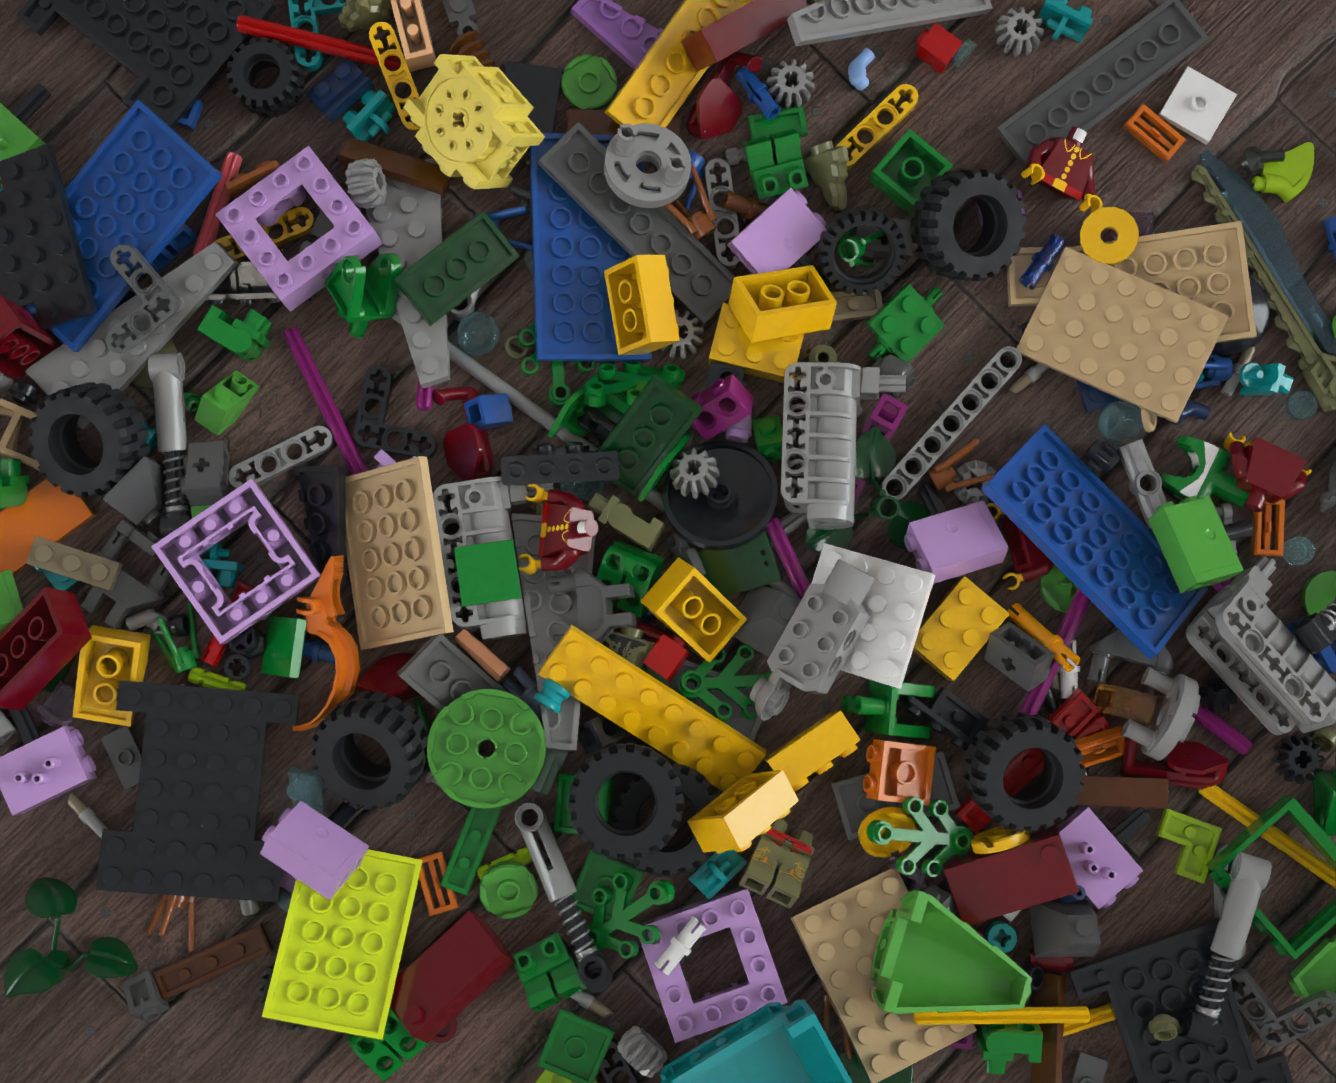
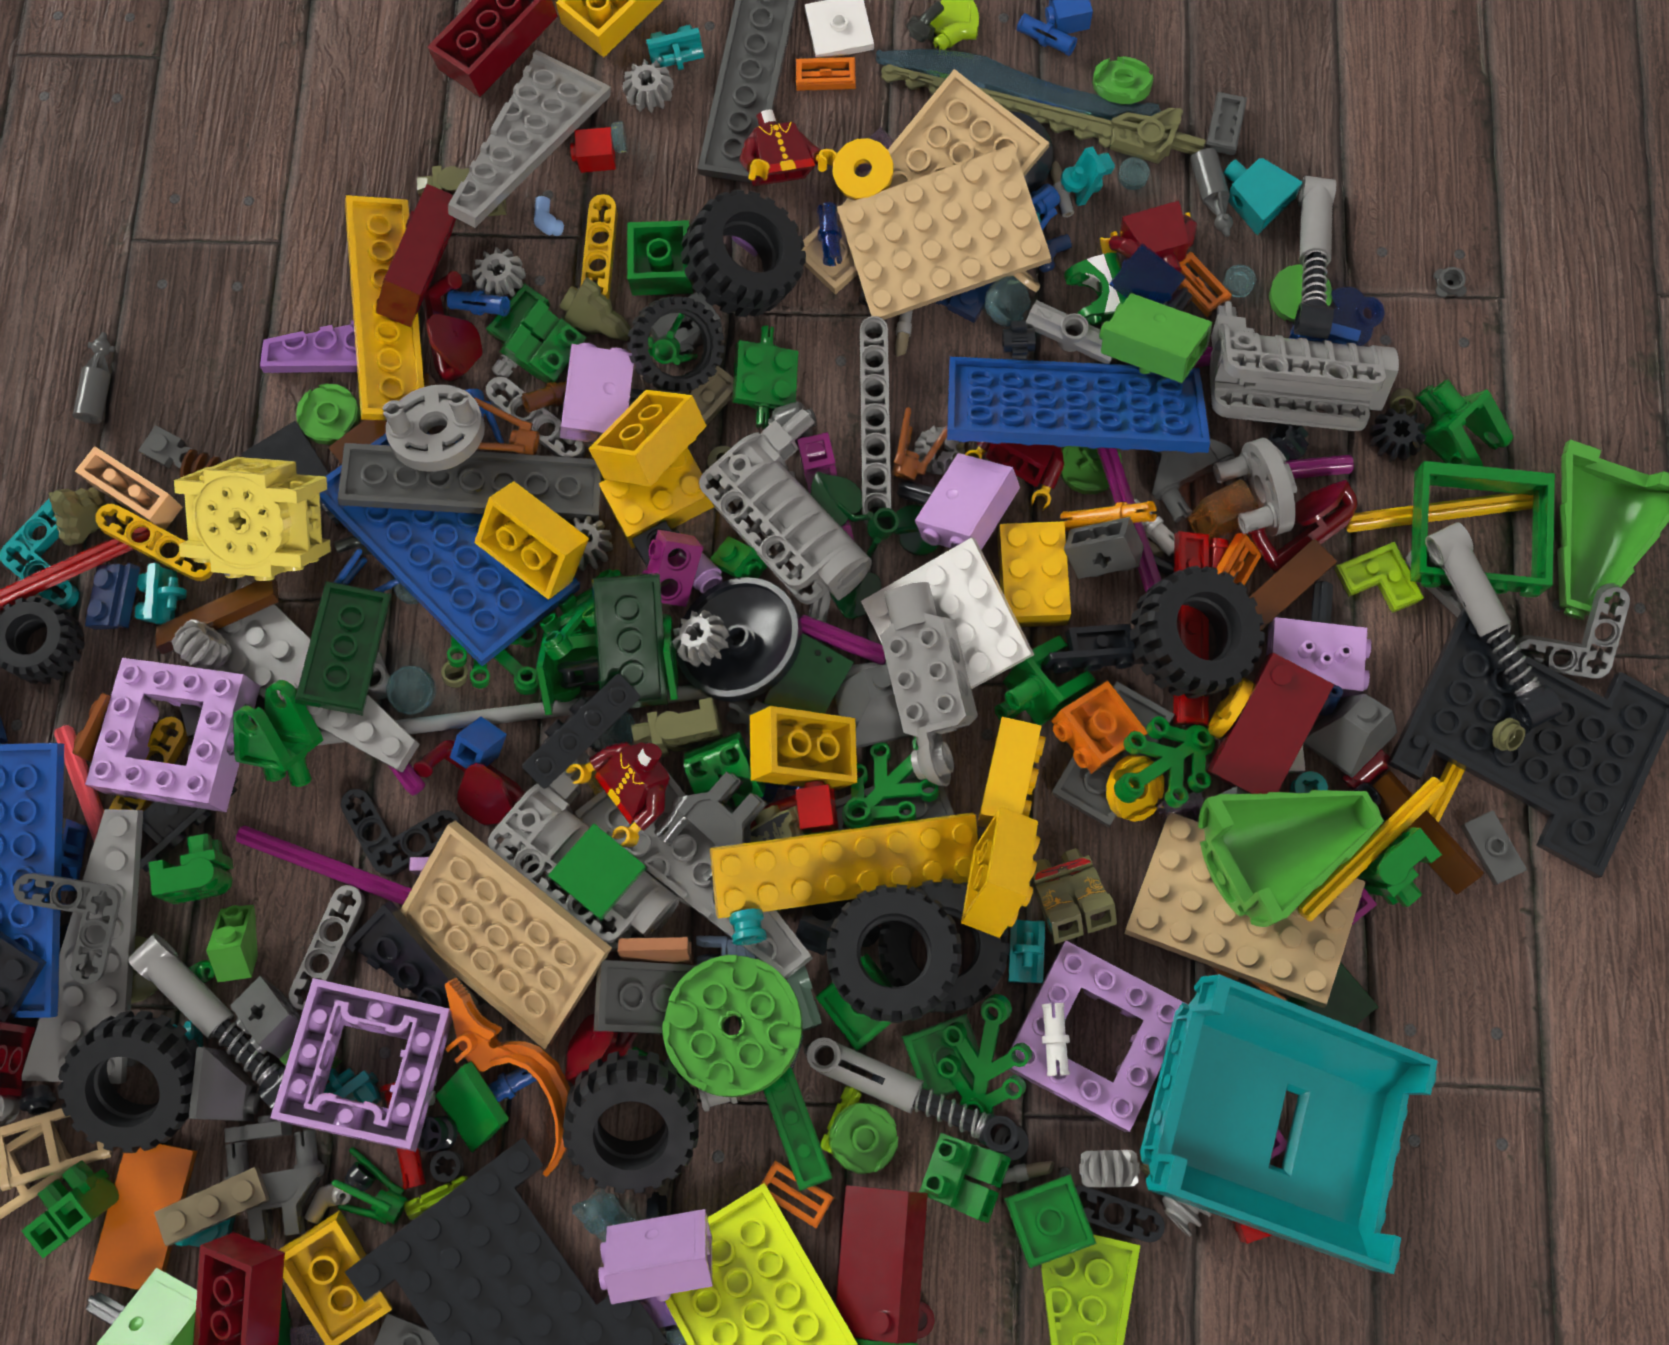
camera: 40 degrees left, 10 degrees down
(1231, 495) = (1147, 276): none -> clear blue piece

